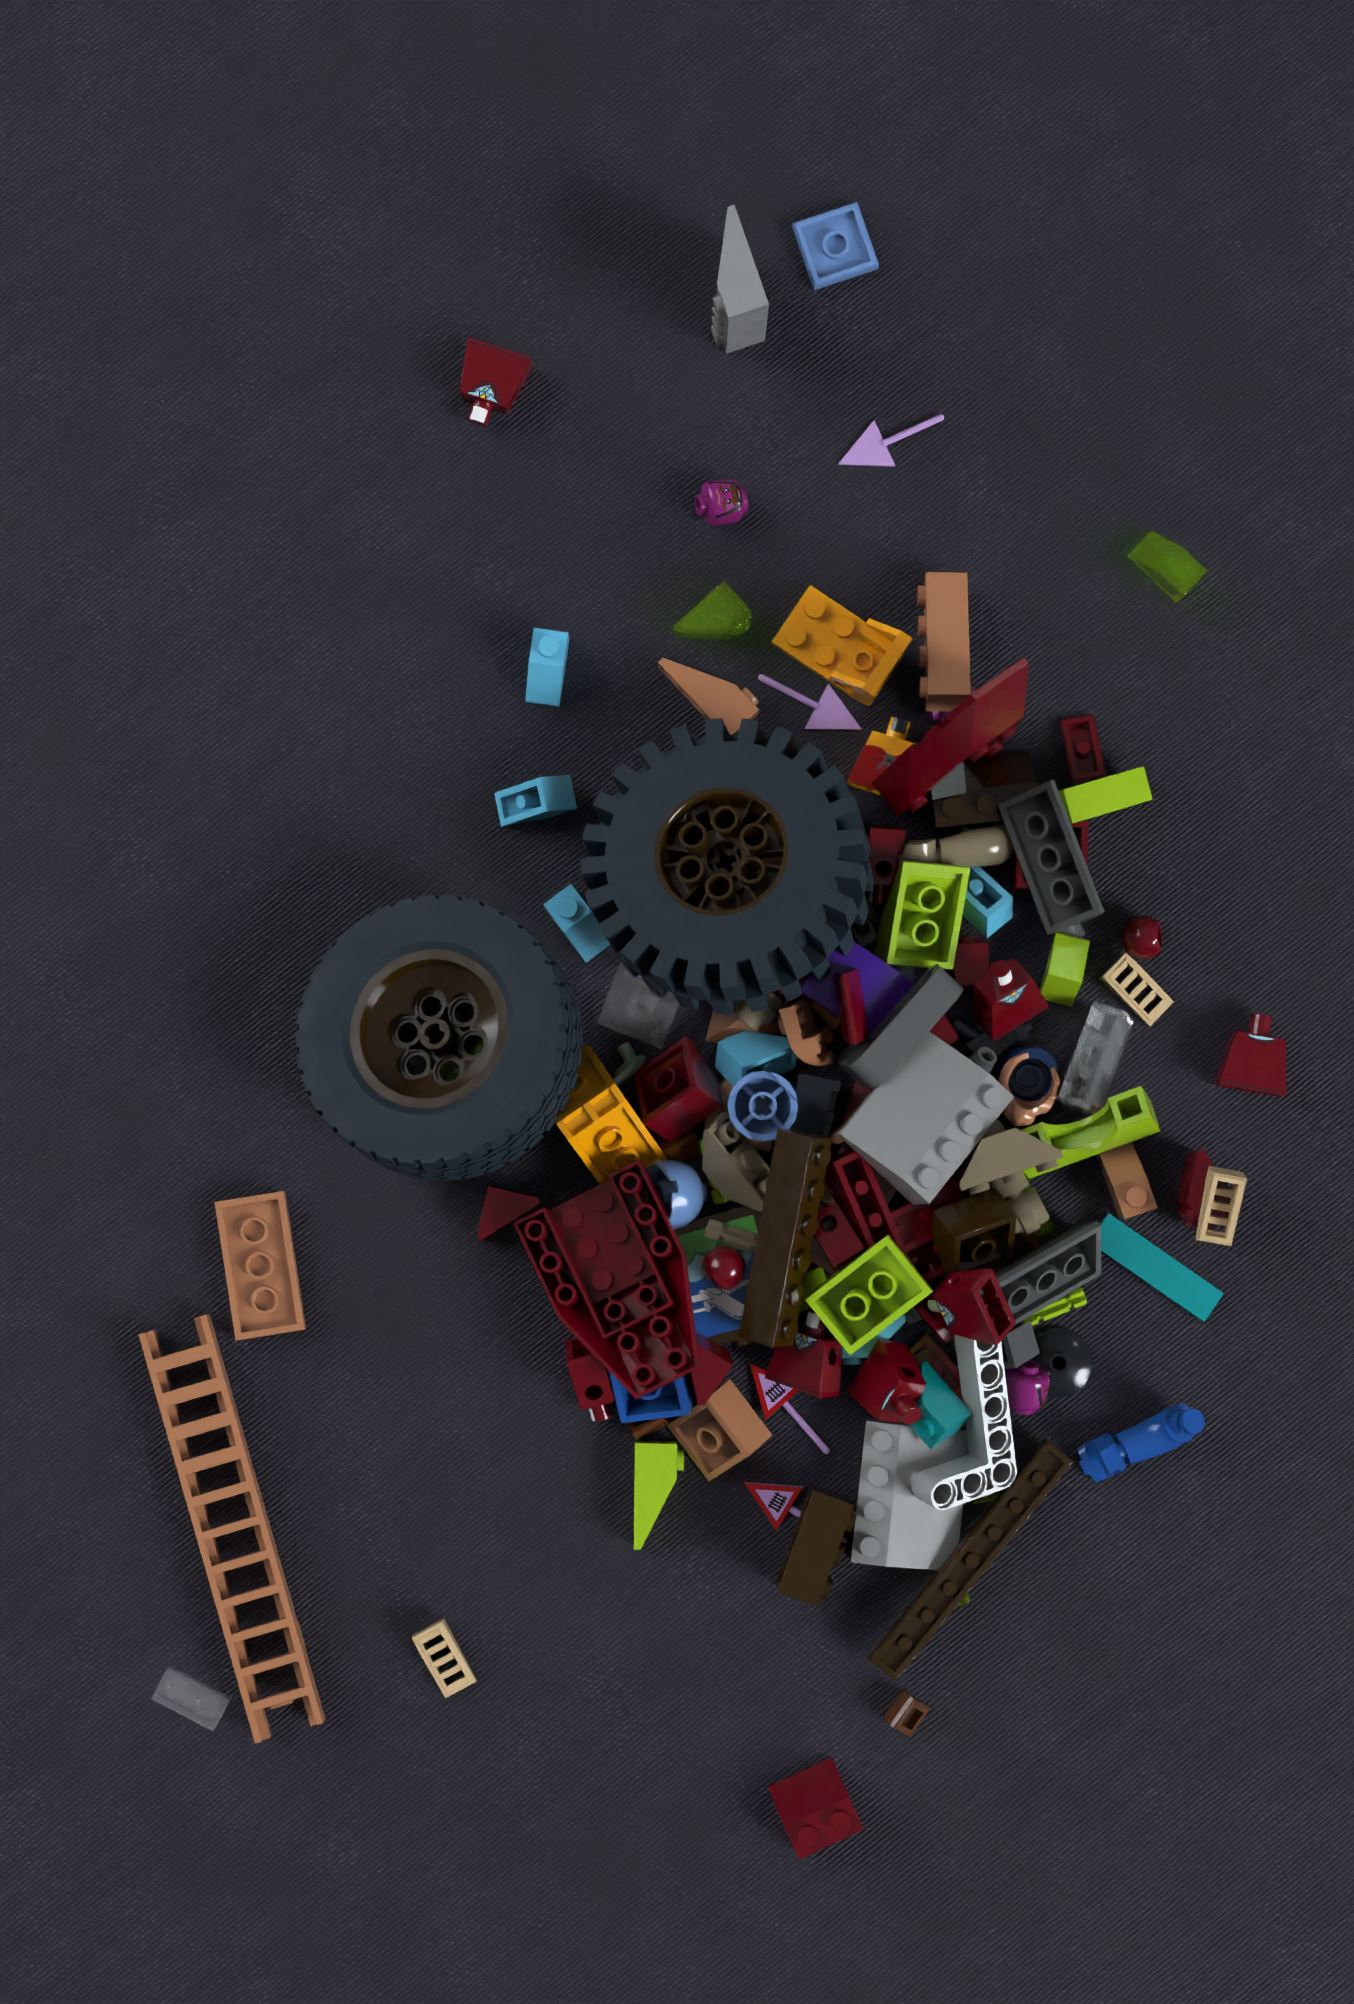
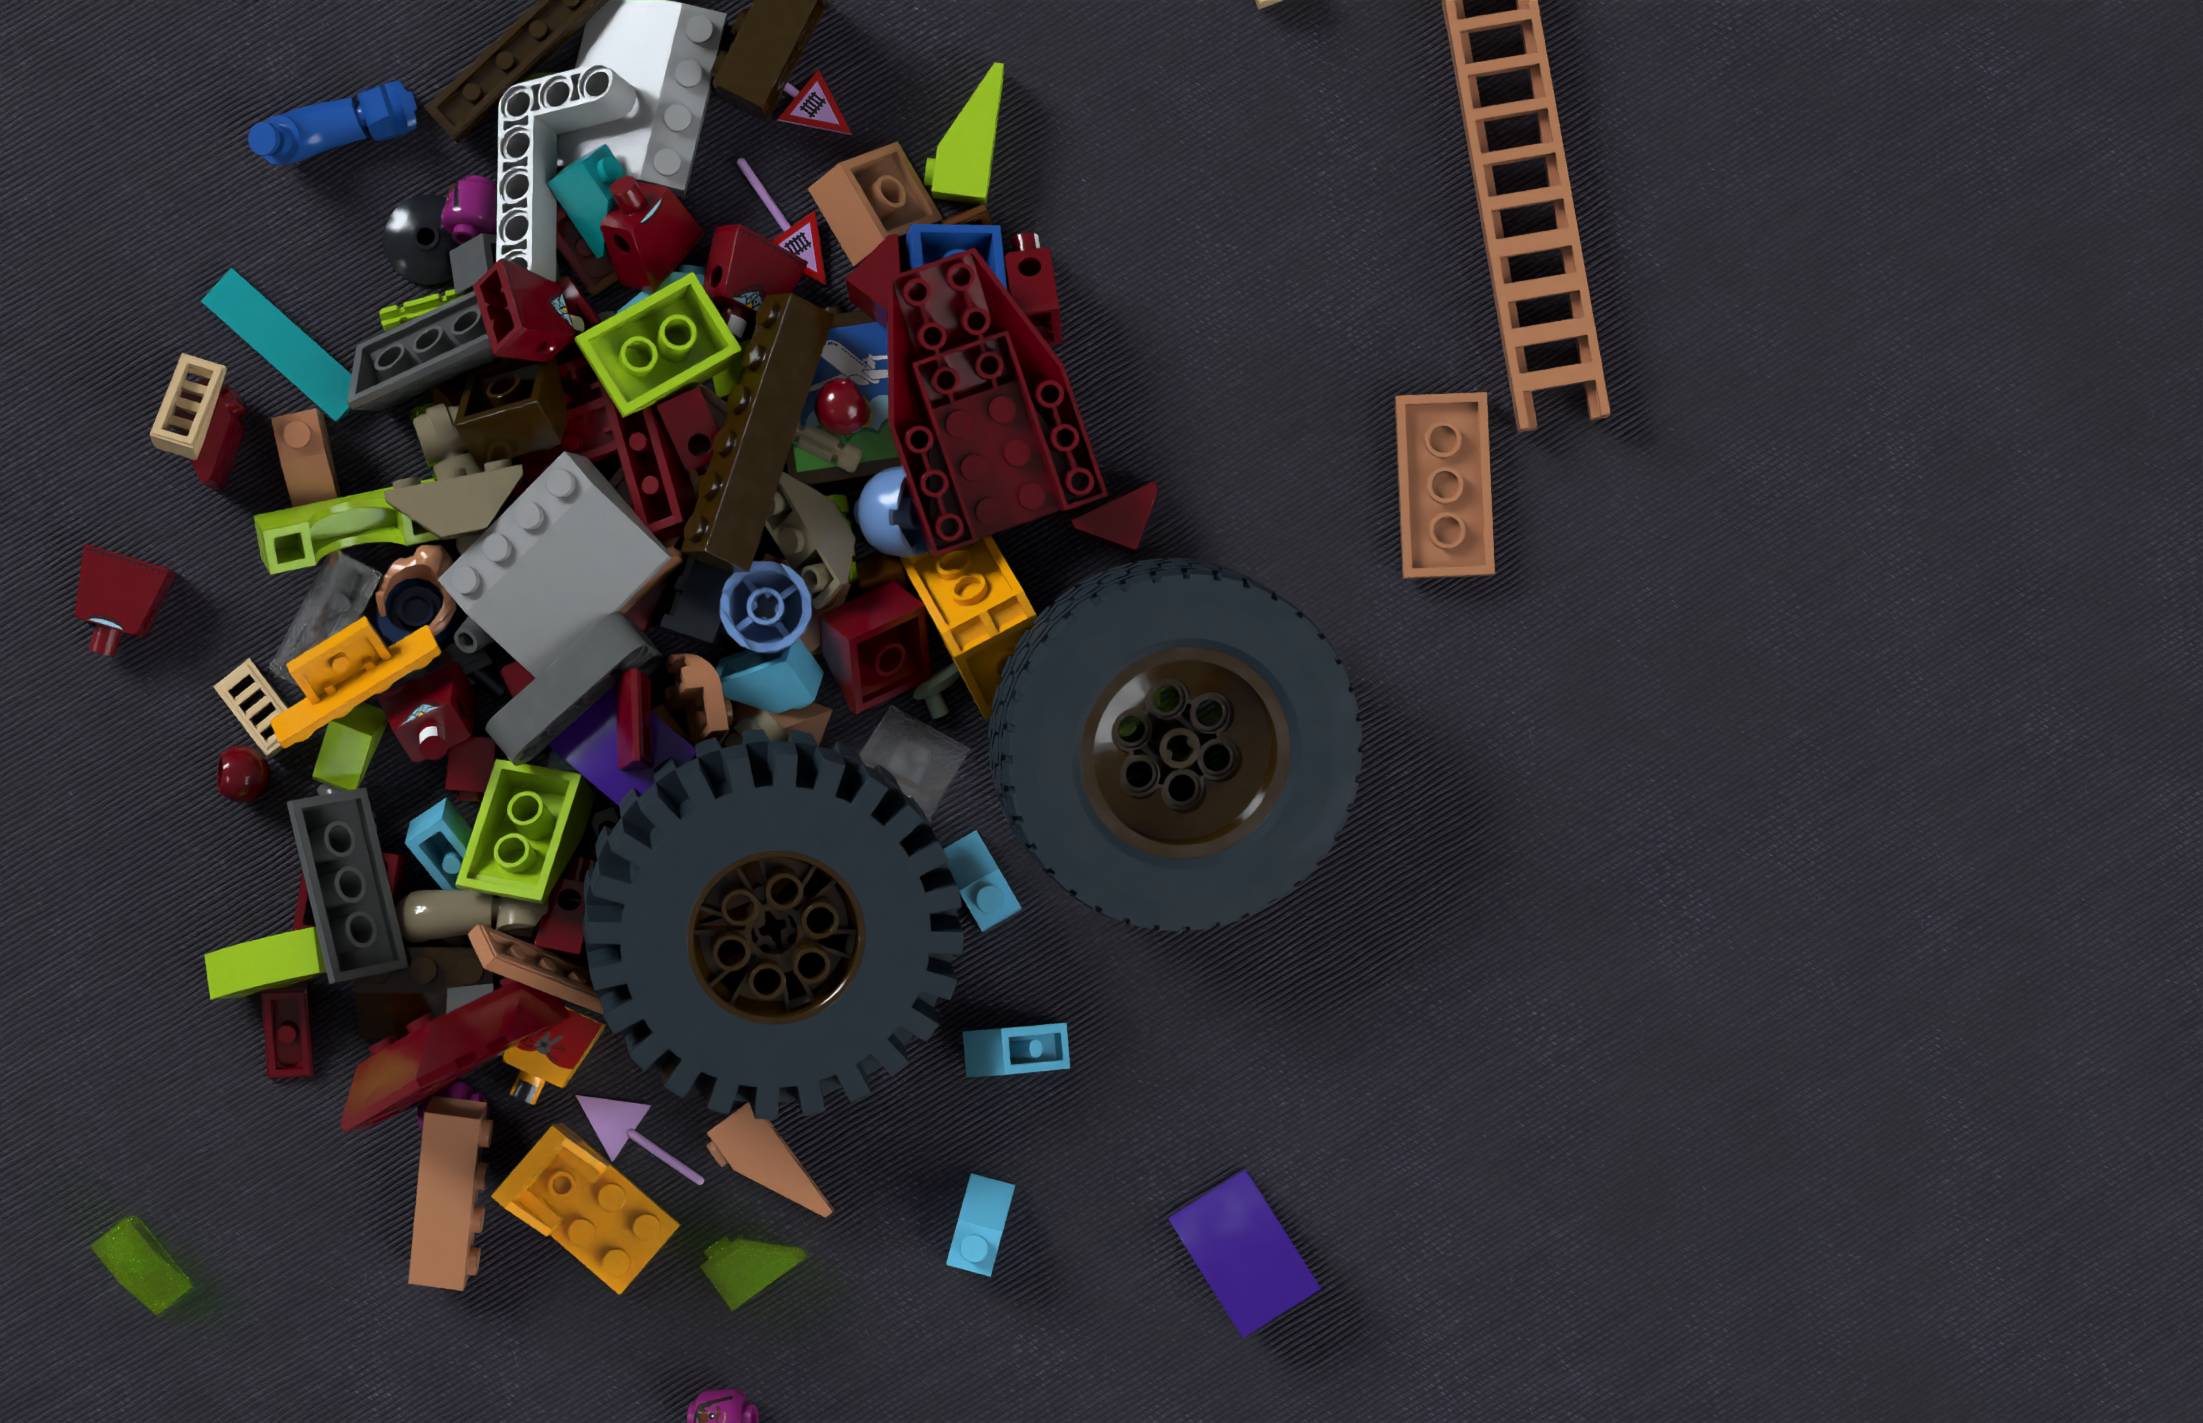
camera: 175 degrees left, 0 degrees up
(347, 669) = (1244, 1253): none -> dark purple slope
(902, 813) = (535, 967): none -> nougat tile
(1073, 1018) = (347, 672): none -> light orange bracket

